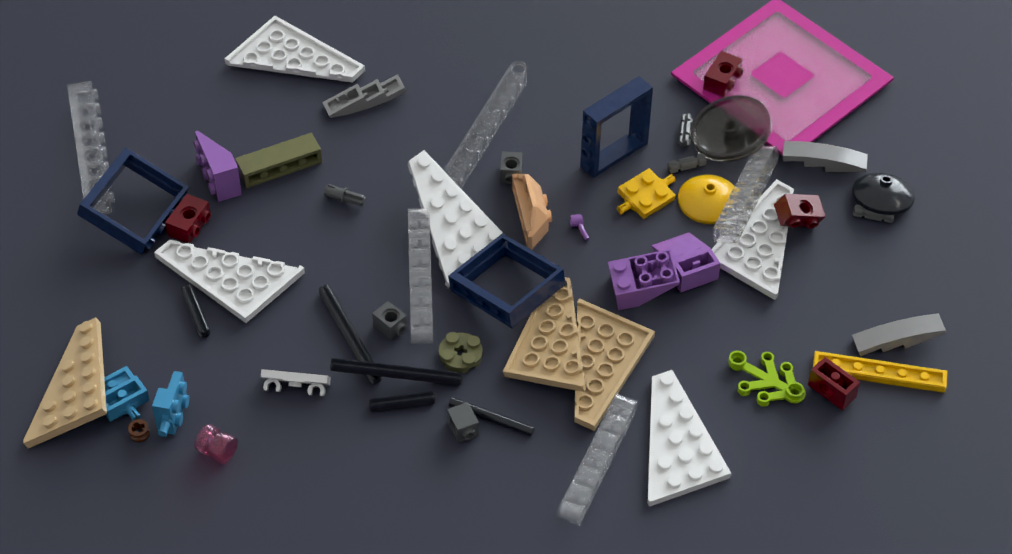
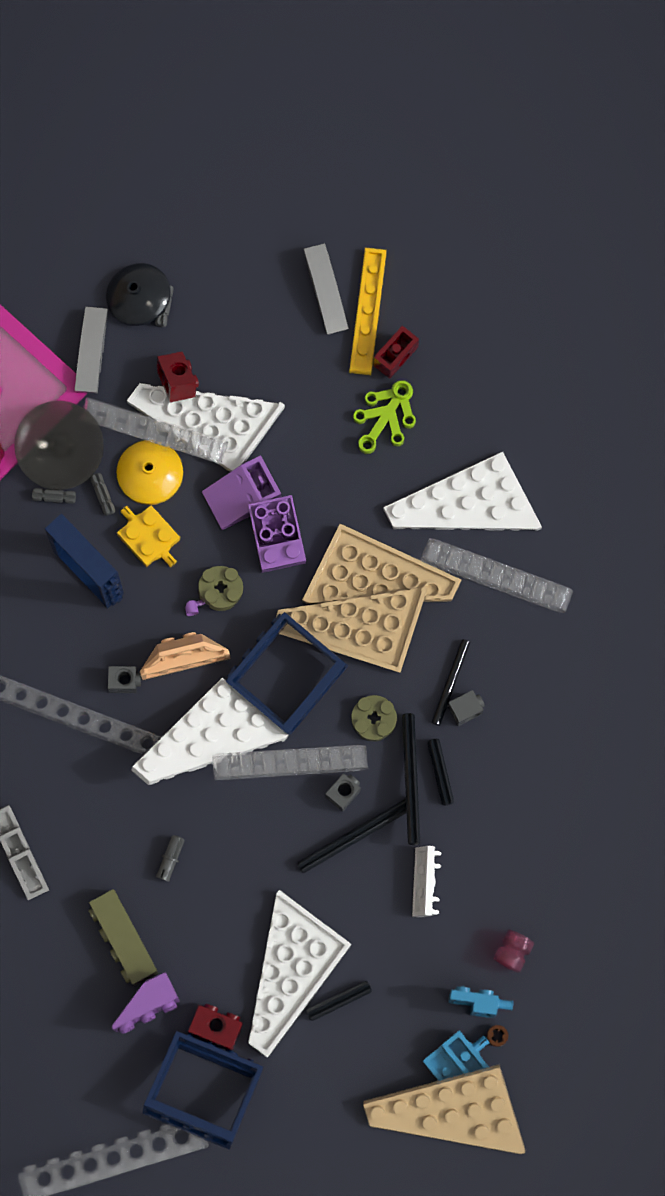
camera: 95 degrees left, 25 degrees up
(596, 230) = (220, 575): none -> olive plate

